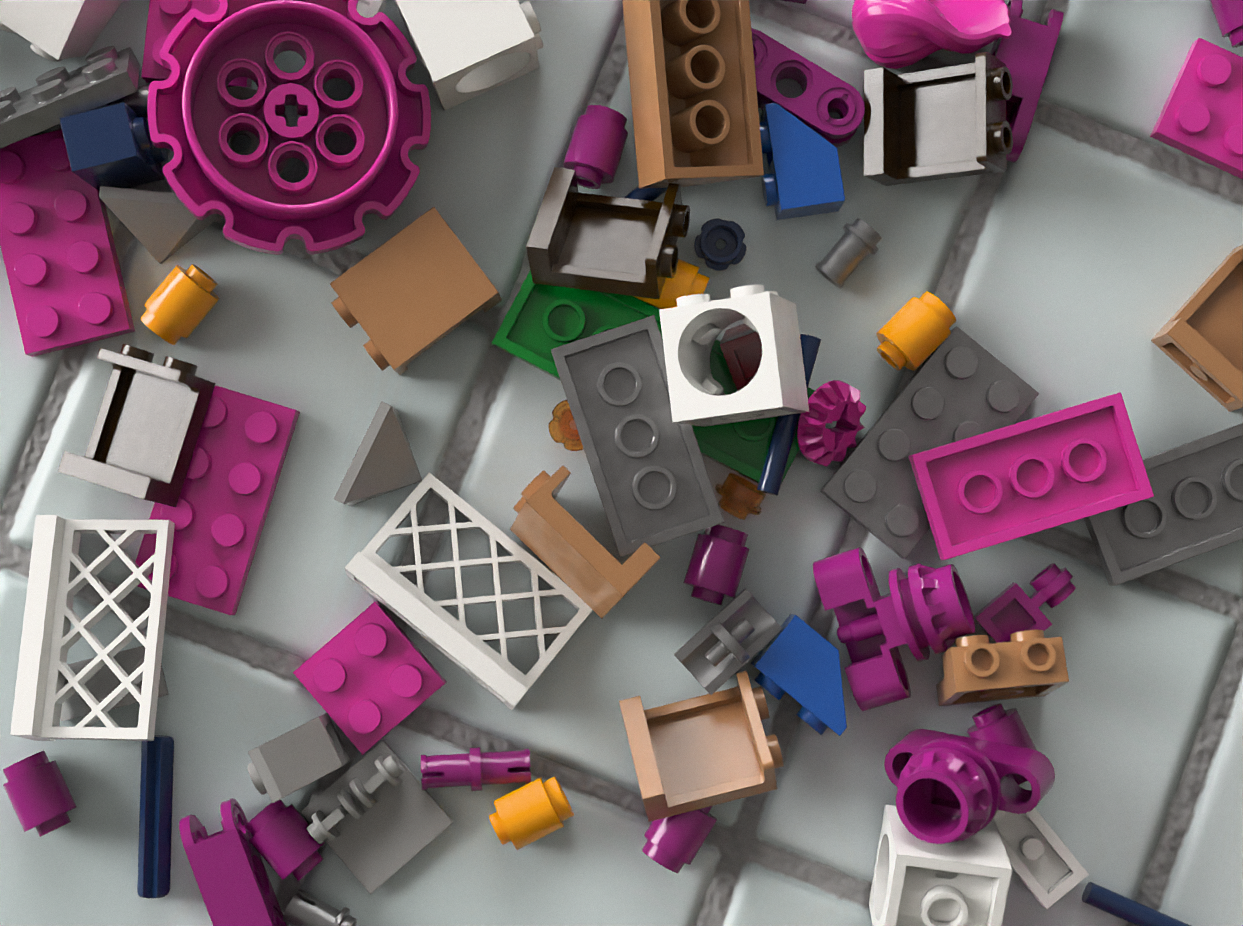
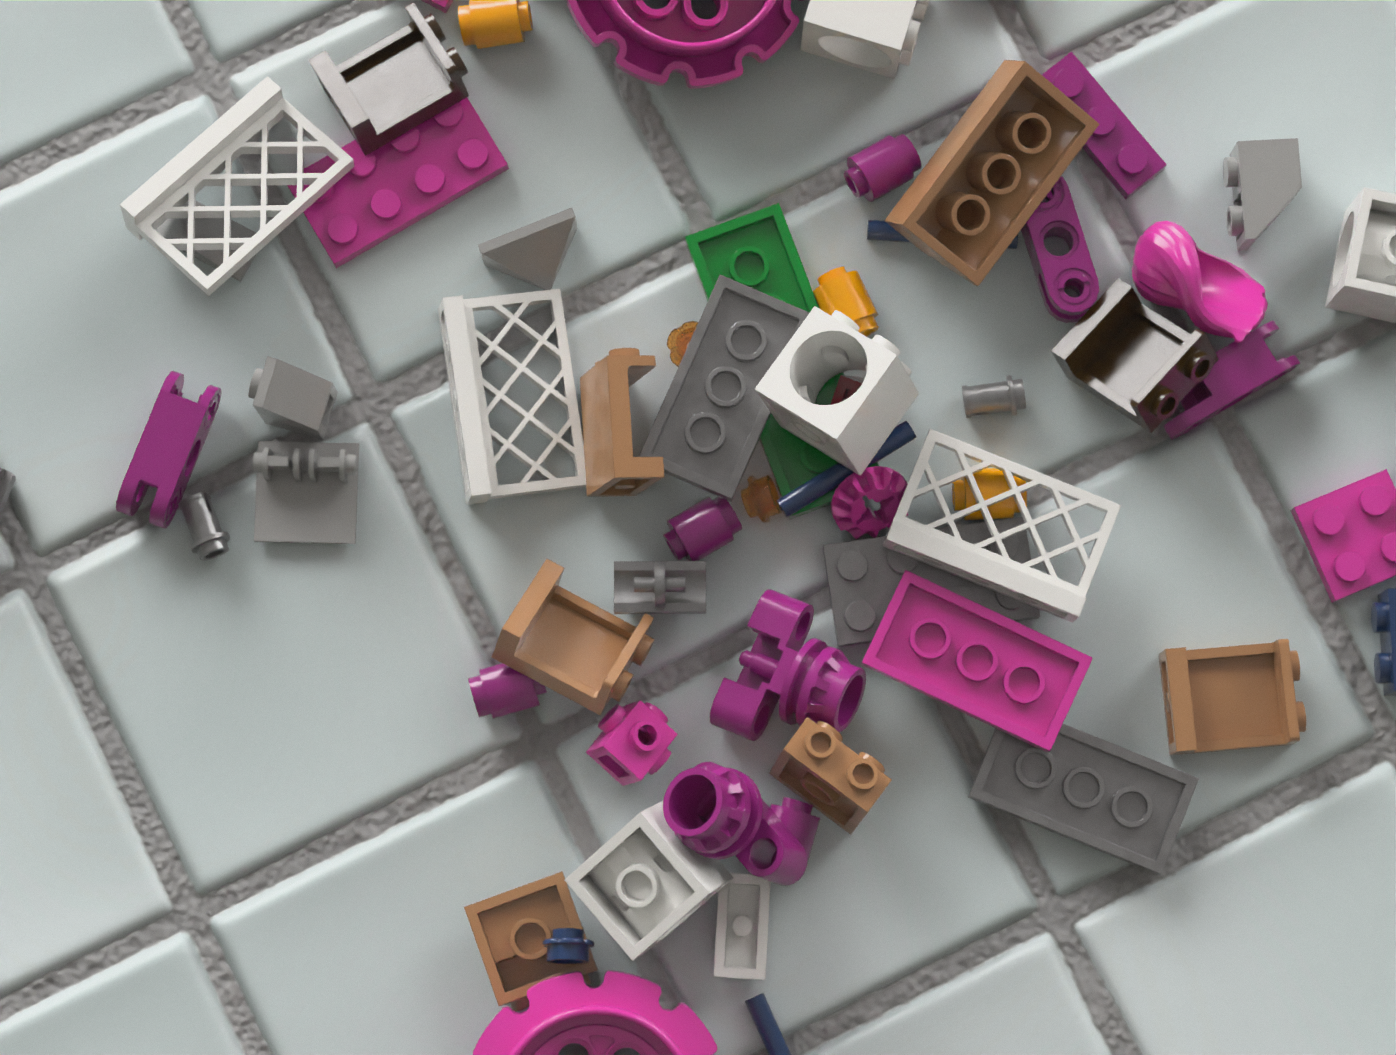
camera: 45 degrees right, 5 degrees down
(38, 793) = (94, 267): magenta brick -> none
(155, 817) = (156, 355): dark blue axle -> none
(284, 841) = (230, 449): magenta brick -> none
(369, 677) = (389, 393): dark pink plate -> none
(413, 291) = (662, 153): medium nougat panel -> none
(475, 769) = (404, 520): magenta pin -> none
(530, 812) = (415, 583): light orange brick -> none
(605, 240) = (827, 233): dark brown panel -> none
(723, 230) = (912, 299): dark blue plate -> none
(801, 167) = (1013, 309): blue slope -> none
(806, 669) = (697, 659): blue slope -> none
(818, 783) = (632, 741): none -> dark pink brick
(971, 394) = (986, 567): none -> white fence
(1016, 612) = (885, 746): magenta plate -> none

